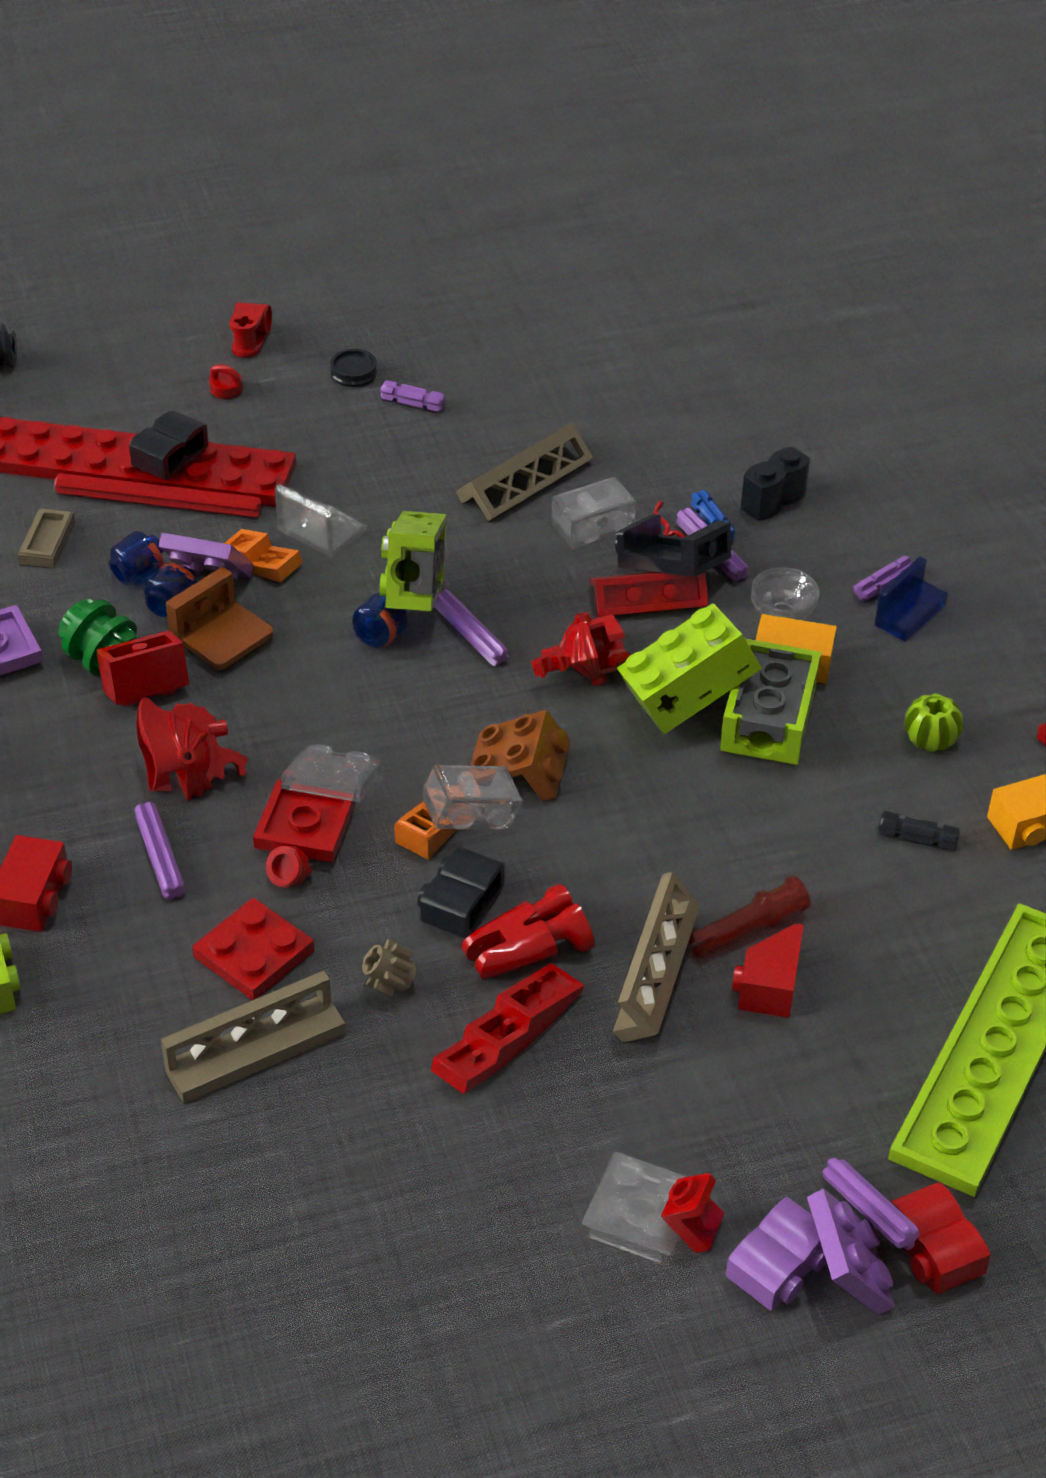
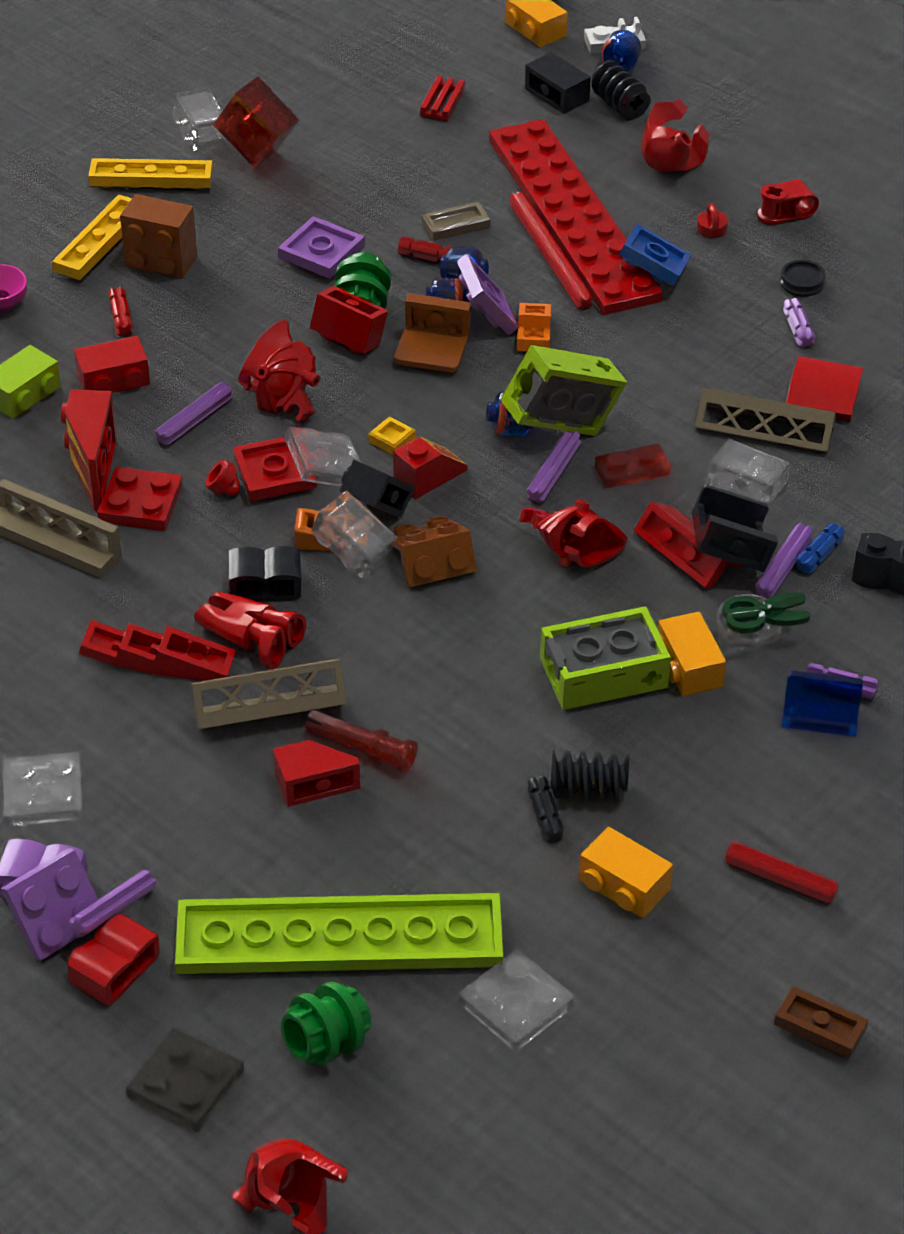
camera: 60 degrees right, 0 degrees up
(75, 575) = (421, 249): none -> red axle
(102, 357) = (666, 147): none -> red piece
(164, 944) = (90, 439): none -> red slope
(168, 445) = (589, 221): black brick -> none
(252, 430) = (654, 255): none -> blue plate
(315, 522) = (598, 330): clear slope -> none
(326, 718) = (391, 435): none -> yellow tile
(389, 968) = (160, 565): dark tan gear -> none
(403, 714) = (425, 465): none -> red slope
(424, 749) = (376, 488): none -> black brick
(510, 579) = (632, 465): none -> clear red plate
(514, 420) = (825, 386): none -> red slope
(667, 532) = (777, 532): red piece -> none
(689, 667) = (580, 586): lime piece -> none
(693, 1212) = (43, 809): red bracket -> none
(793, 575) = (770, 611): none -> dark green piece
(909, 776) = (589, 776): none -> black piece
(933, 722) = (673, 769): lime piece -> none

